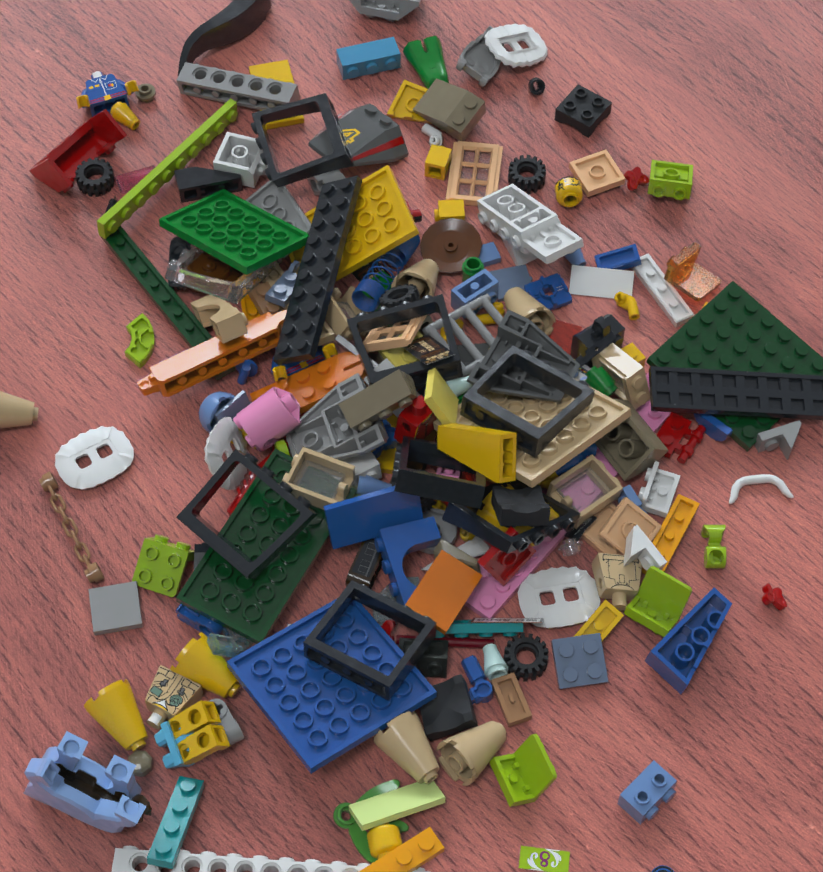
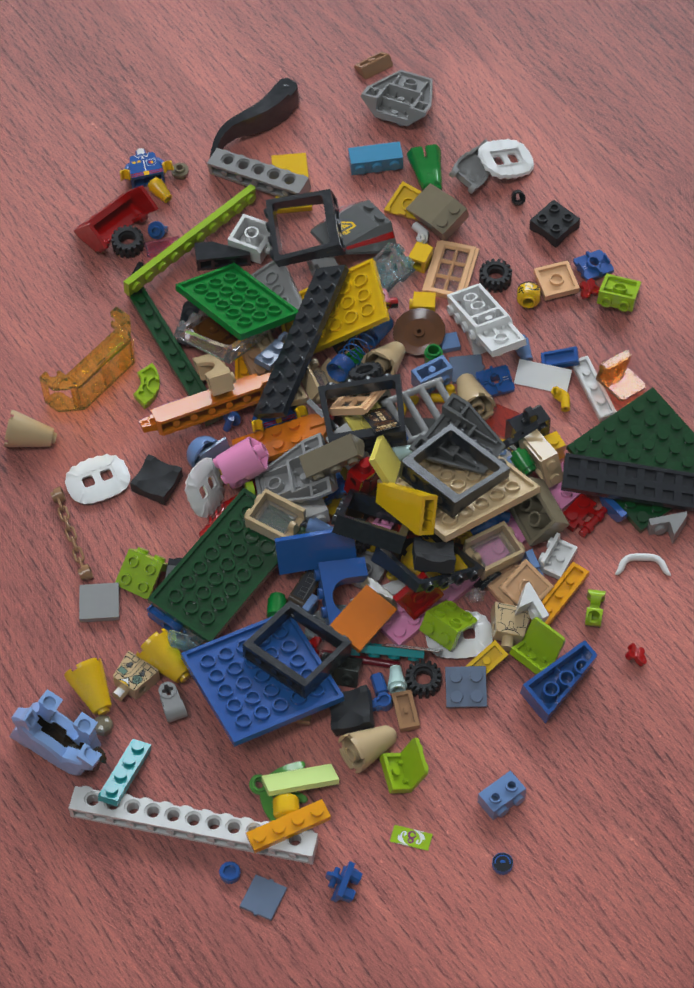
camera: 10 degrees right, 0 degrees up
(97, 295) = (86, 370): none -> clear yellow windscreen
(128, 160) = (157, 230): none -> blue plate
(166, 450) = (156, 480): none -> black brick
(191, 516) = (168, 537): black windscreen -> none
(192, 735) = (146, 707): yellow hips -> none
(332, 586) = (275, 603): none -> green brick
(376, 580) = (311, 604): none -> medium blue tile
(409, 747) = (316, 736): tan cone -> none
(411, 172) = (393, 265): none -> clear light blue plate
(543, 586) = (446, 623): none -> lime bracket
(628, 152) = (587, 263): none -> blue piece

